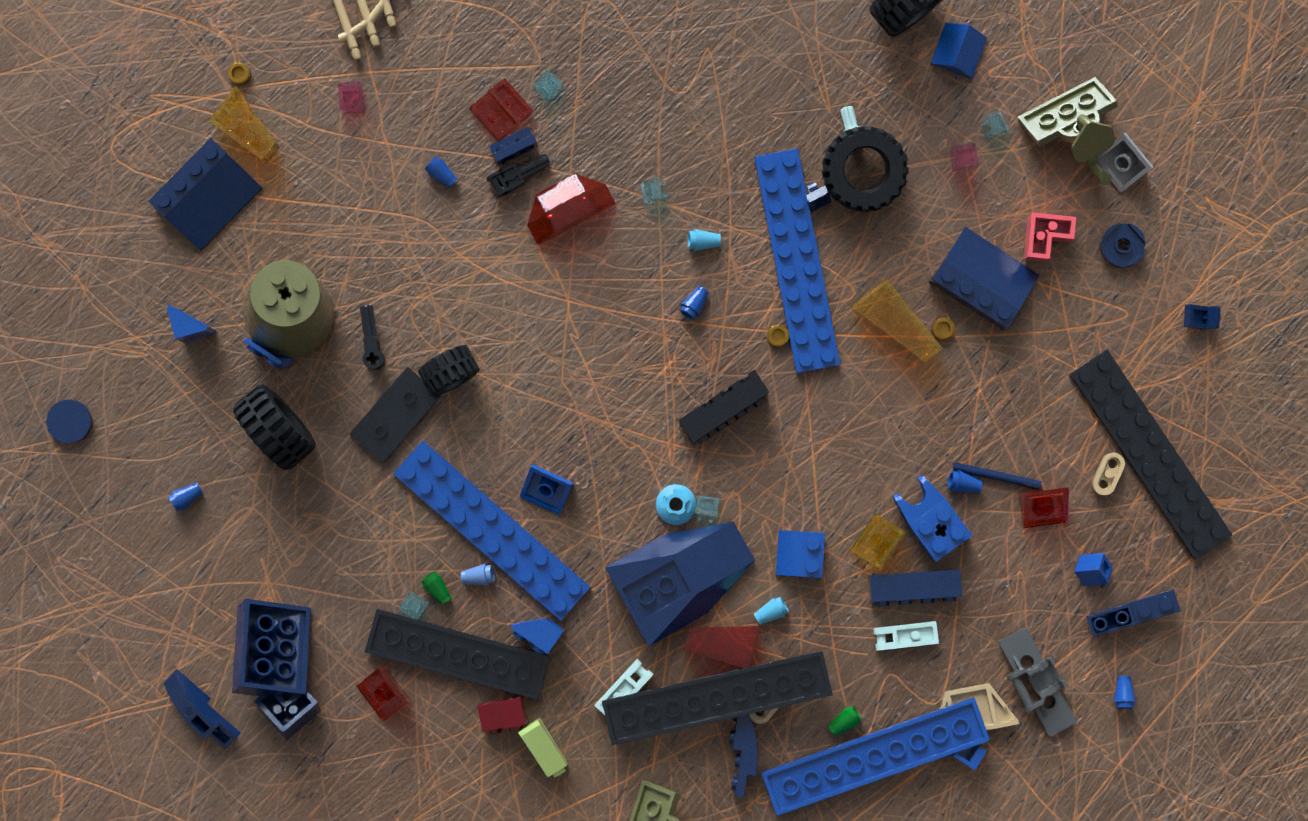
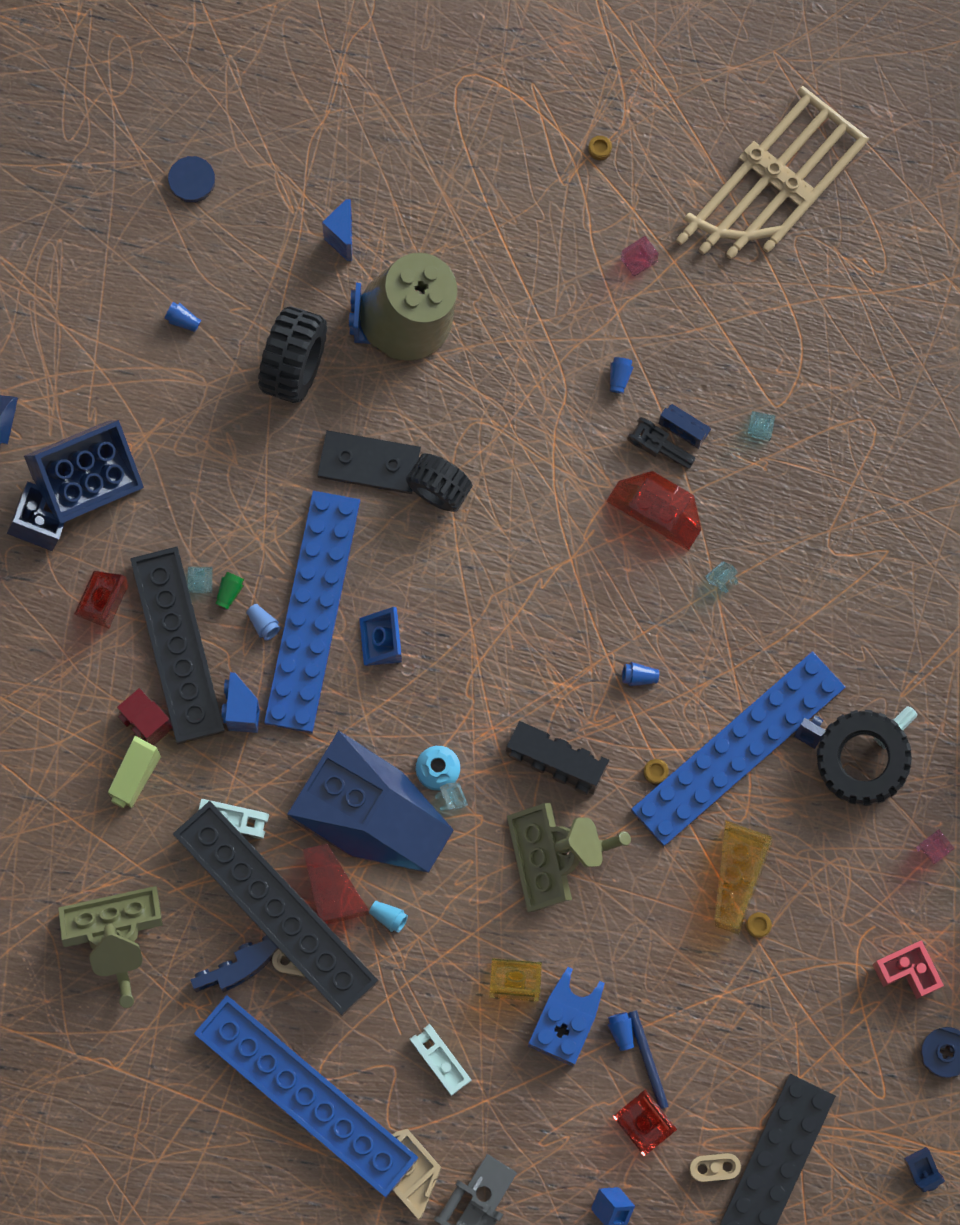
camera: 55 degrees right, 10 degrees down
(205, 194) = (471, 179): dark blue slope -> none
(242, 124) = (554, 177): clear yellow wedge -> none
(370, 339) = (423, 401): black connector -> none
(501, 109) = (712, 396): clear red slope -> none
(703, 240) = (704, 649): medium azure cone -> none
(800, 553) = (460, 912): blue slope -> none
(803, 463) = (543, 851): none -> olive plate
(845, 721) = (324, 1048): green cone -> none
(915, 585) = (493, 1039): dark blue brick -> none
(971, 756) = (359, 1189): blue panel -> none
(984, 279) = (831, 936): dark blue slope -> none

